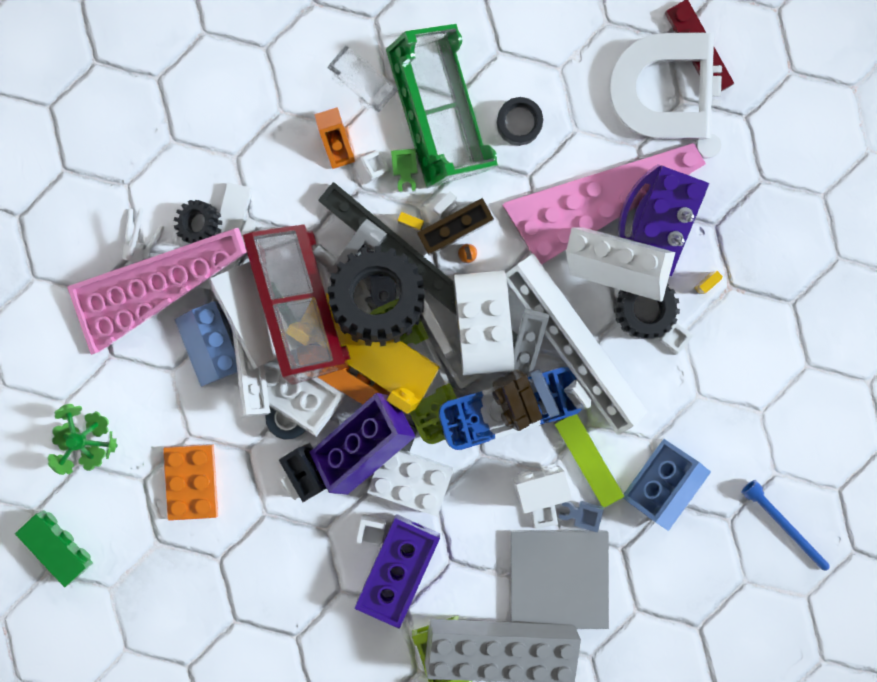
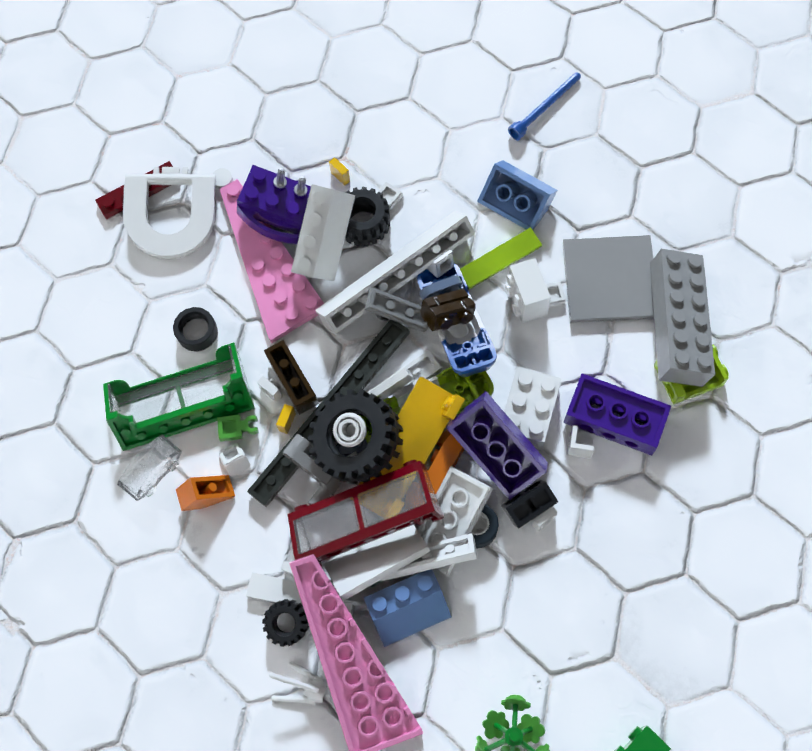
camera: 85 degrees left, 20 degrees down
(190, 482) = (549, 623): orange plate -> none
(375, 291) = (349, 429): none -> white brick
(462, 253) = (316, 373): orange hinge -> none
(483, 322) = (378, 341): white brick -> none
(587, 515) = (550, 258): sand blue plate -> none

